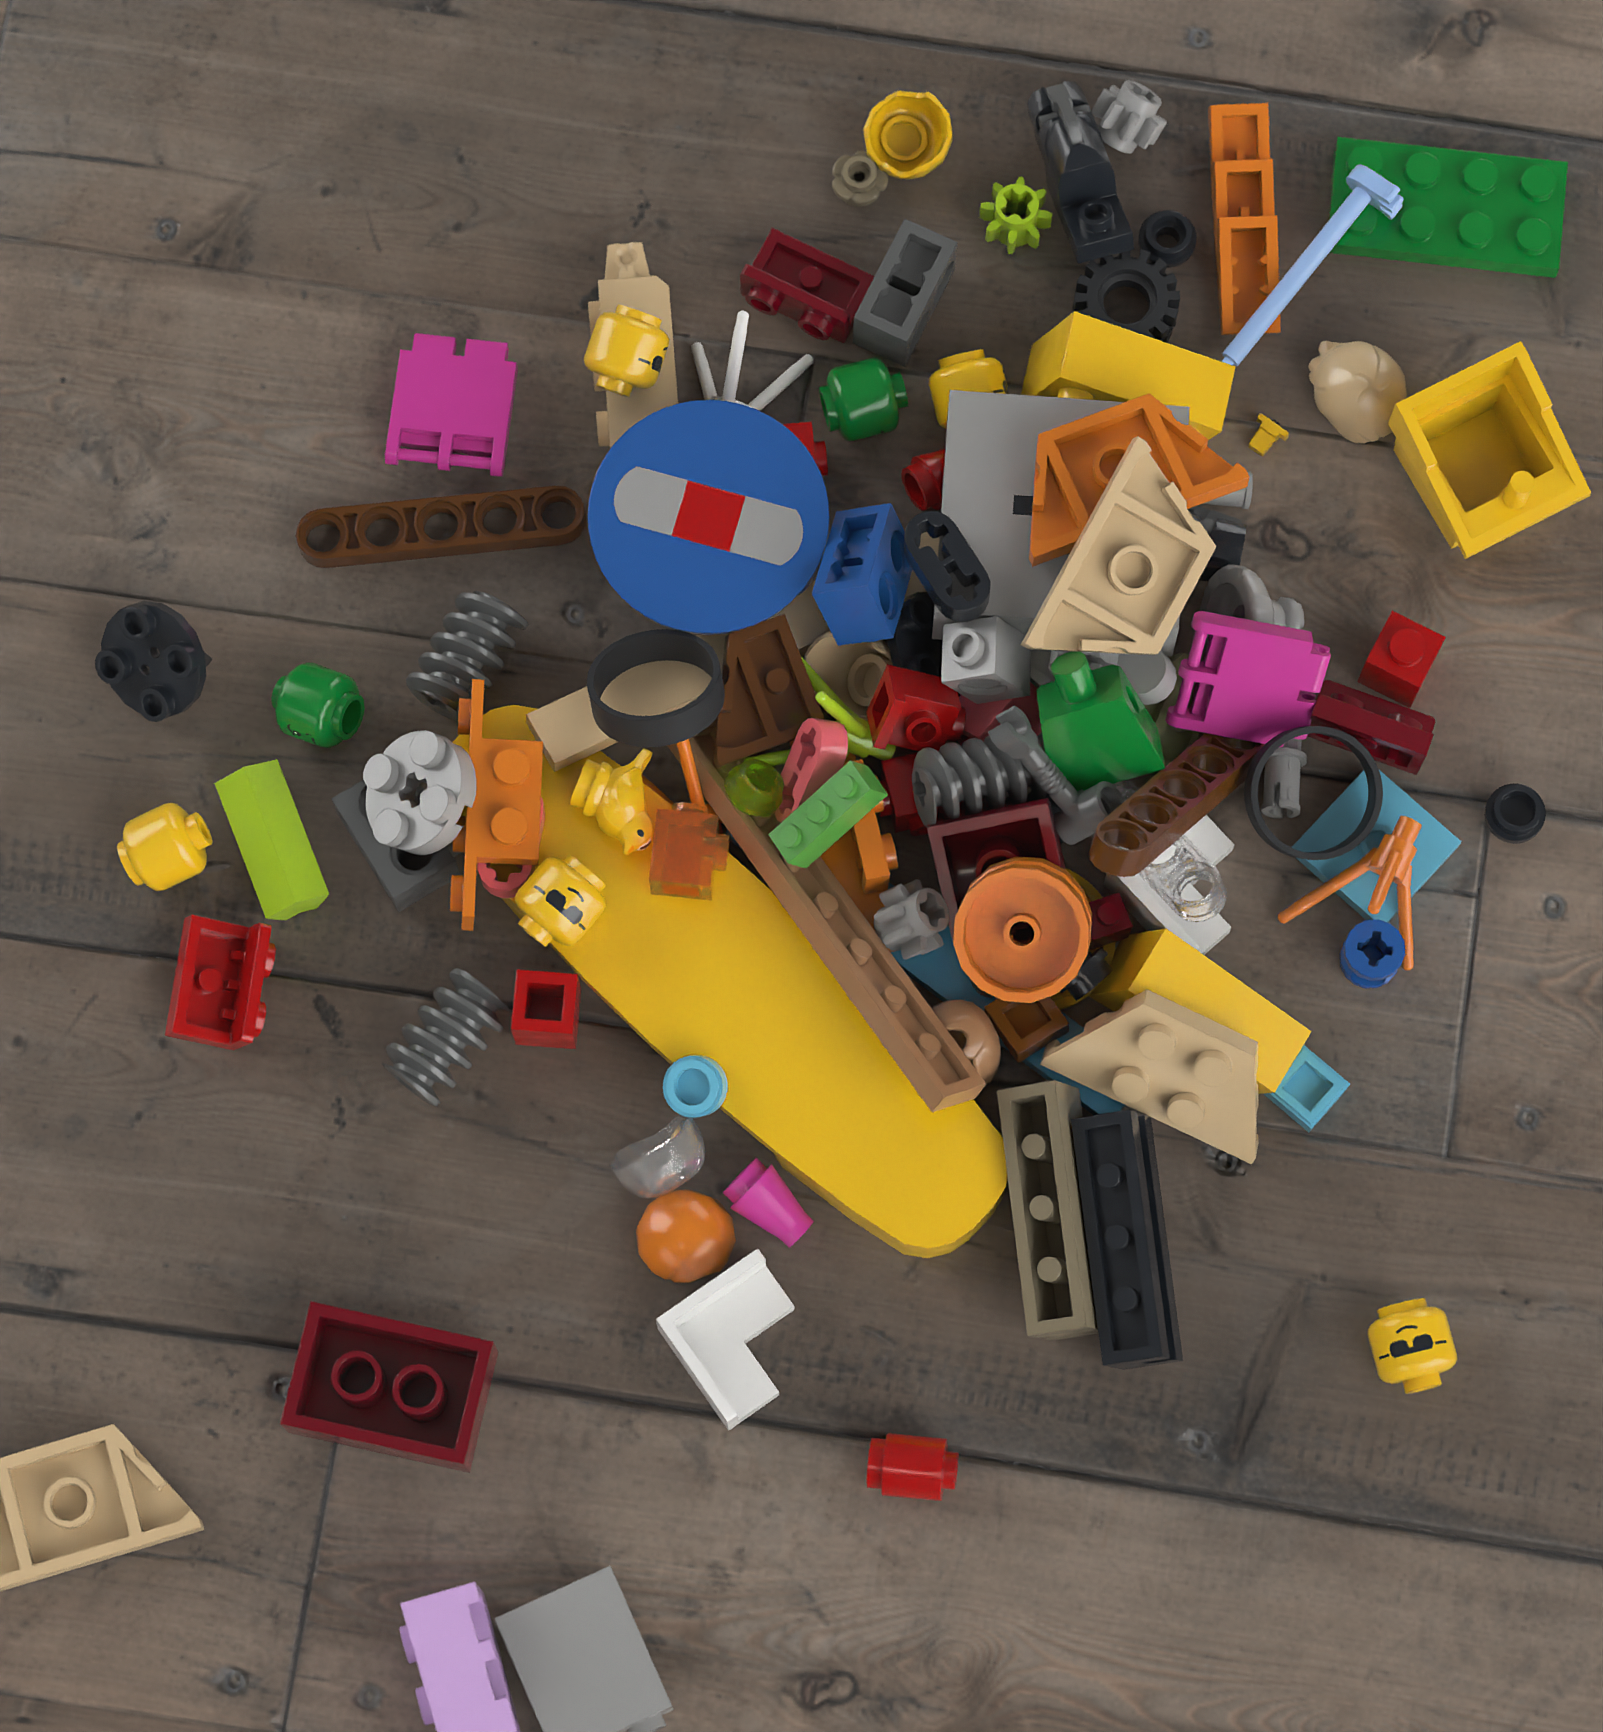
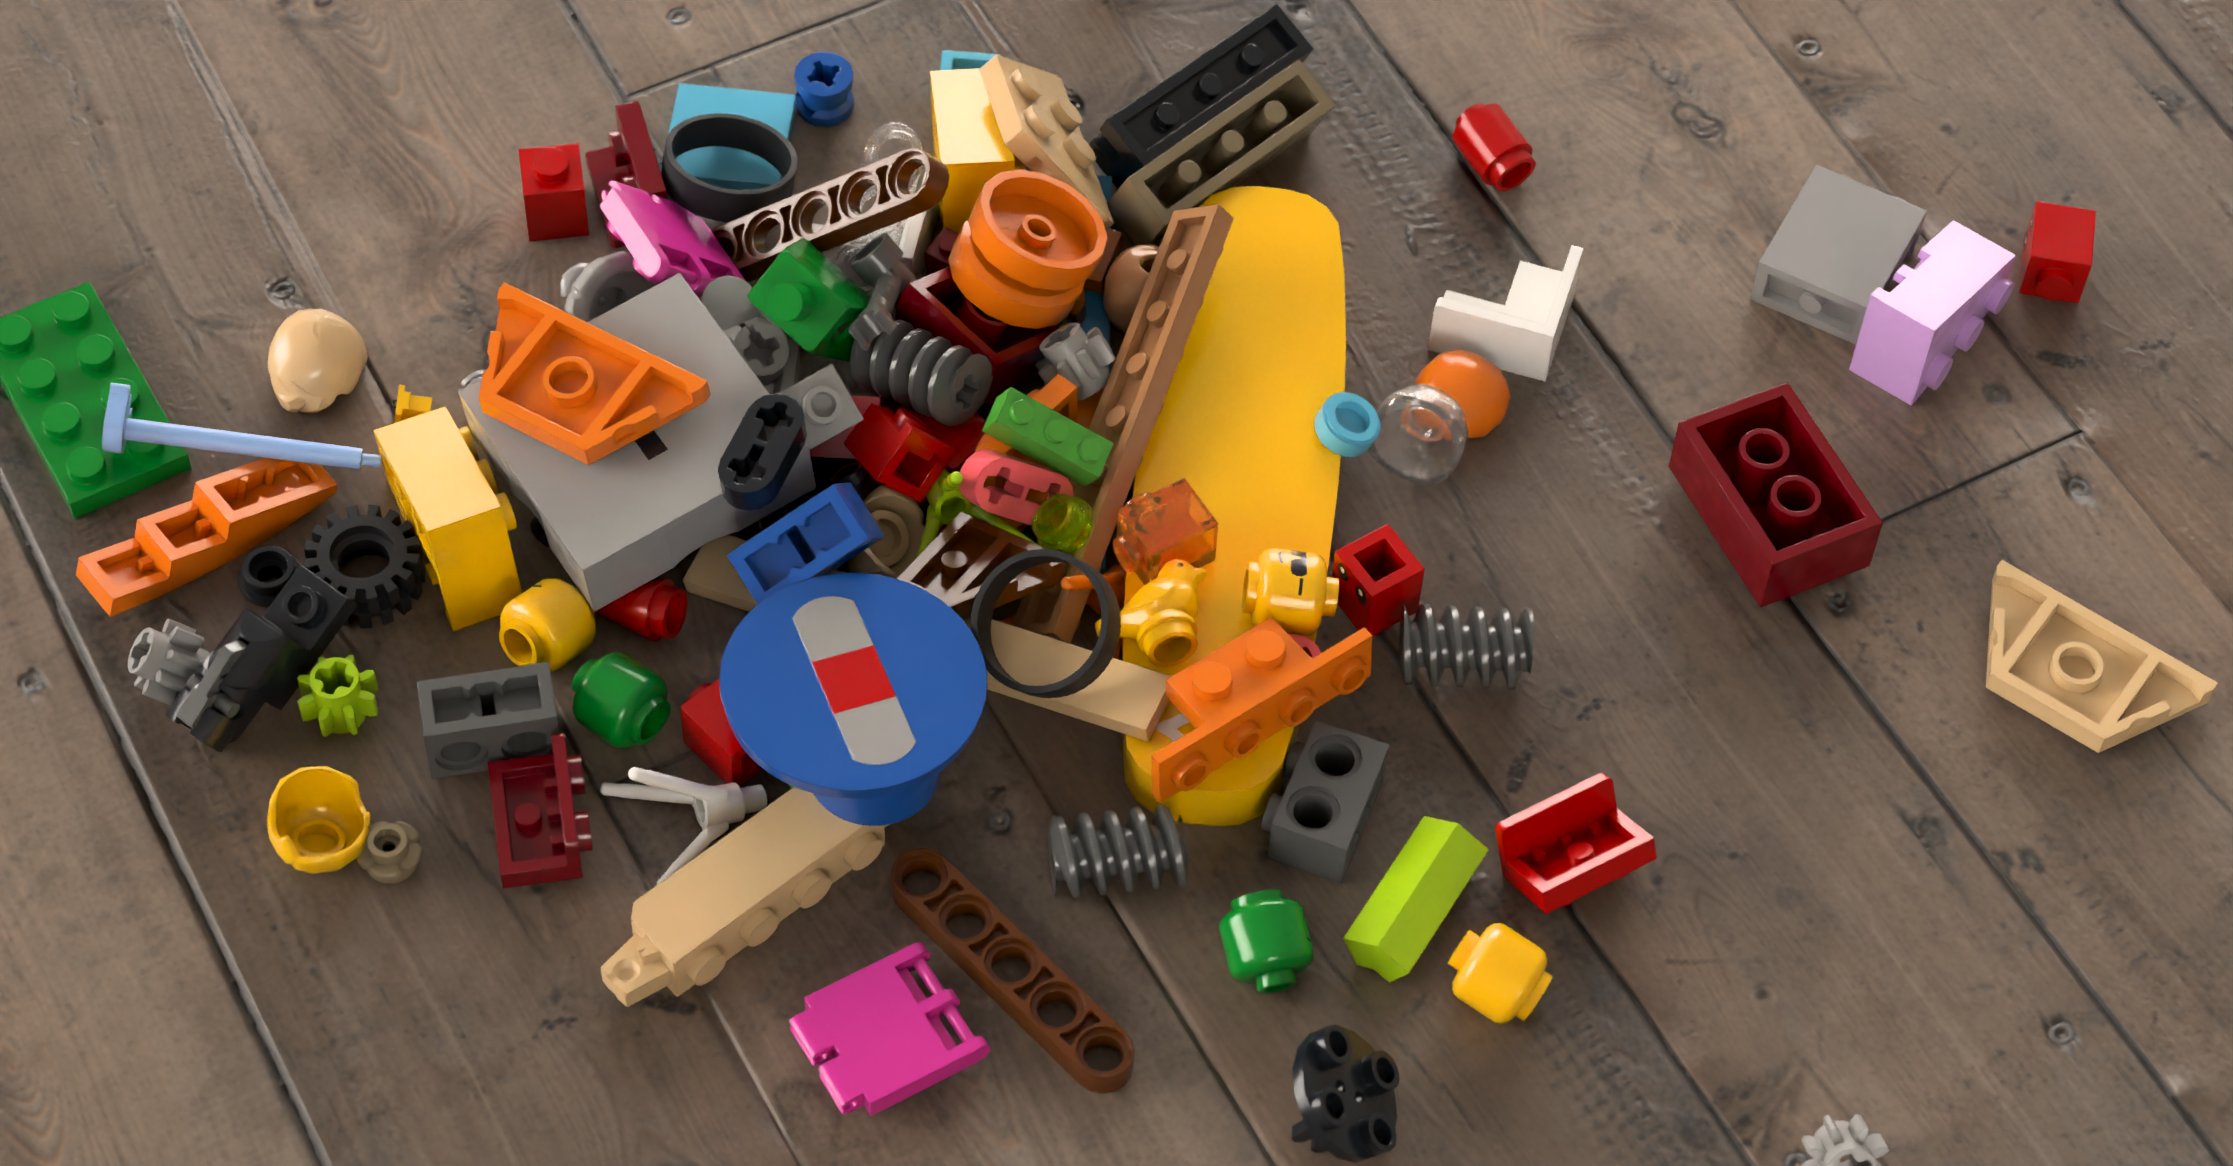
camera: 130 degrees left, 20 degrees down
(392, 786) = (1328, 748): light grey plate -> none
(626, 350) = (735, 868): yellow head -> none
(768, 1202) = (1383, 355): dark pink cone -> none
(1126, 568) = (665, 306): tan wing -> none
(1388, 861) = (742, 99): orange plant -> none
(1487, 451) = (325, 208): yellow piece -> none
(1515, 813) = (623, 65): black plate -> none

